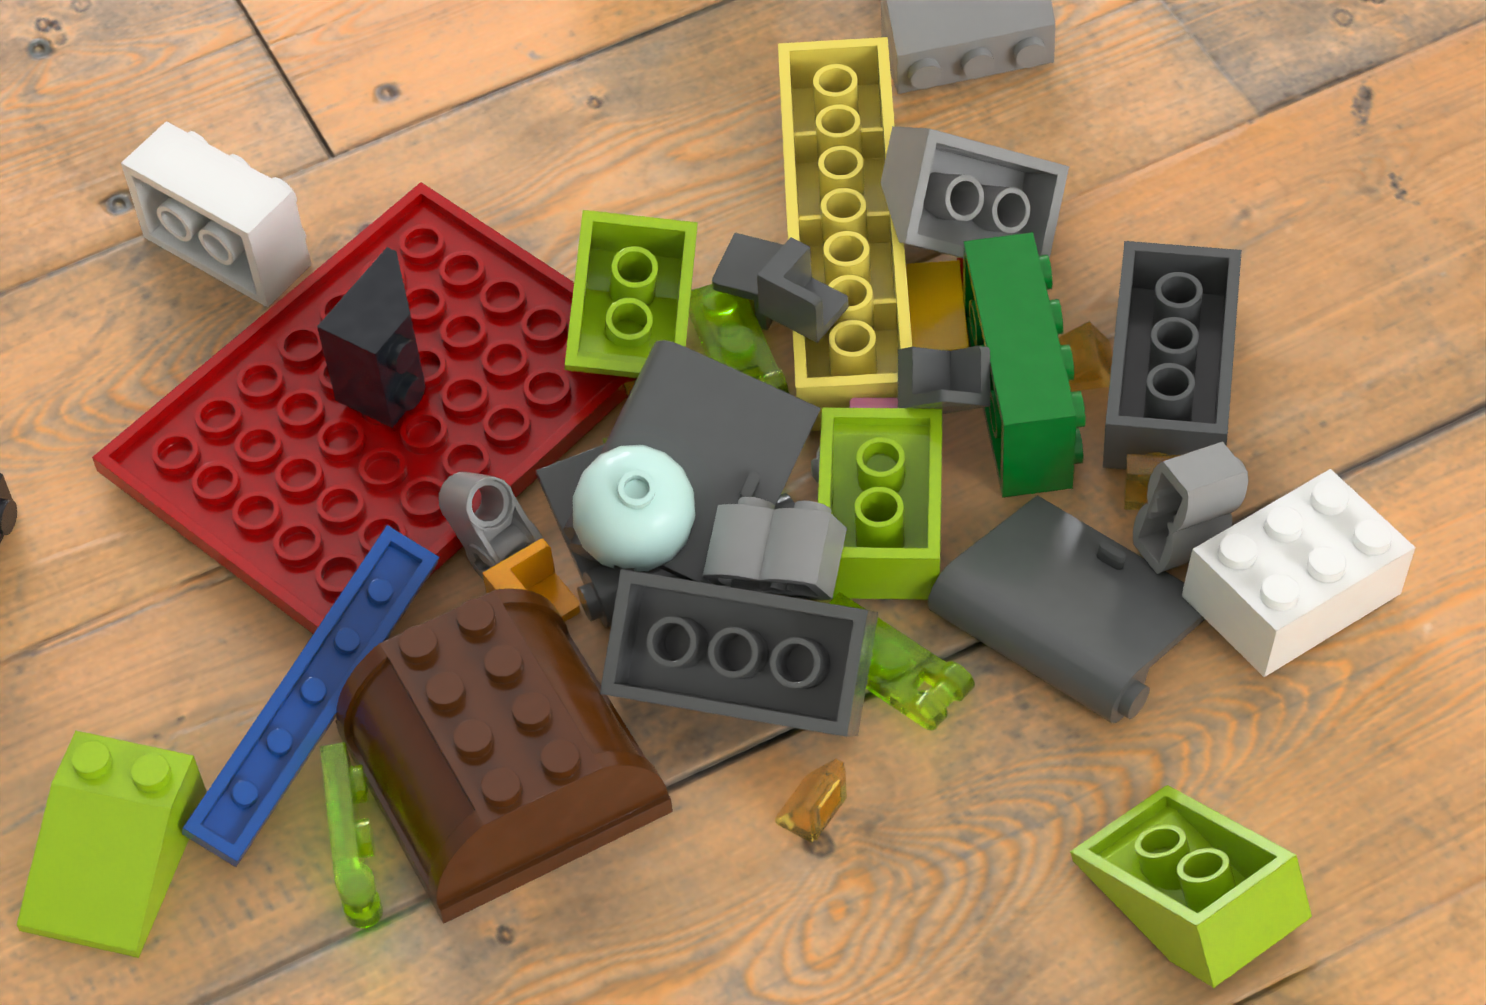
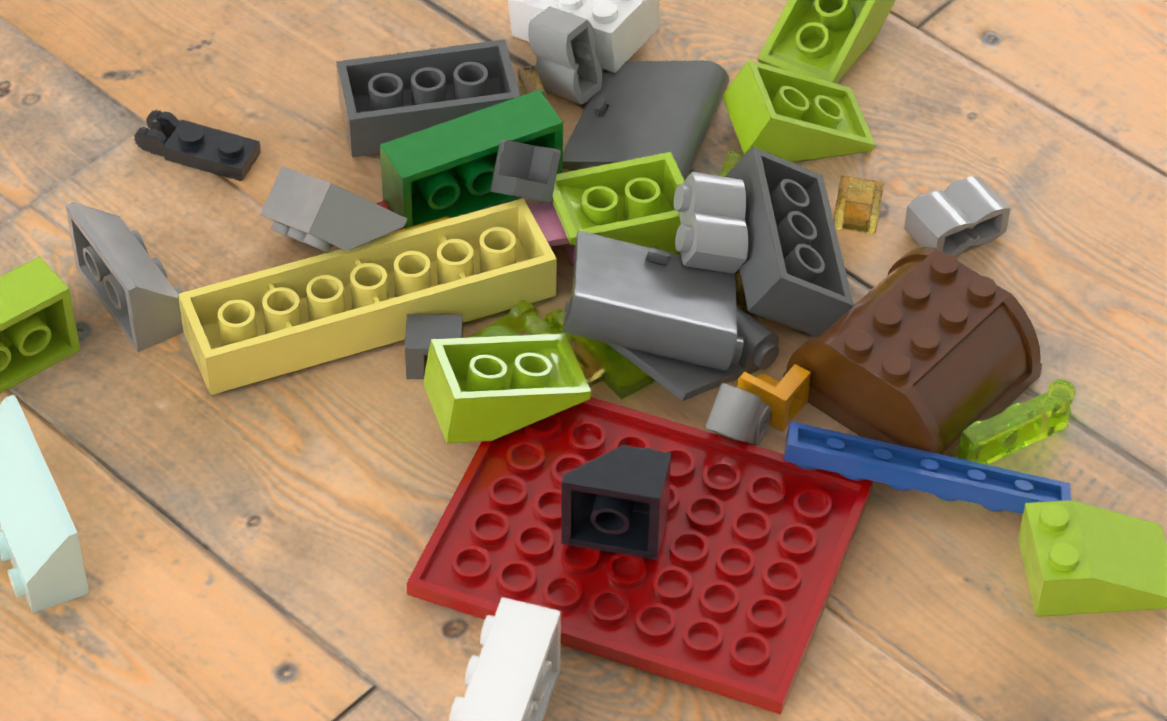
camera: 115 degrees left, 5 degrees down
(633, 508) = (716, 295): light aqua cylinder -> none
(737, 904) = (958, 217): none -> light grey brick
(794, 297) = (480, 266): dark grey panel -> none
(1007, 782) = (795, 114): none -> lime slope
(1192, 146) = (197, 145): none -> black hinge

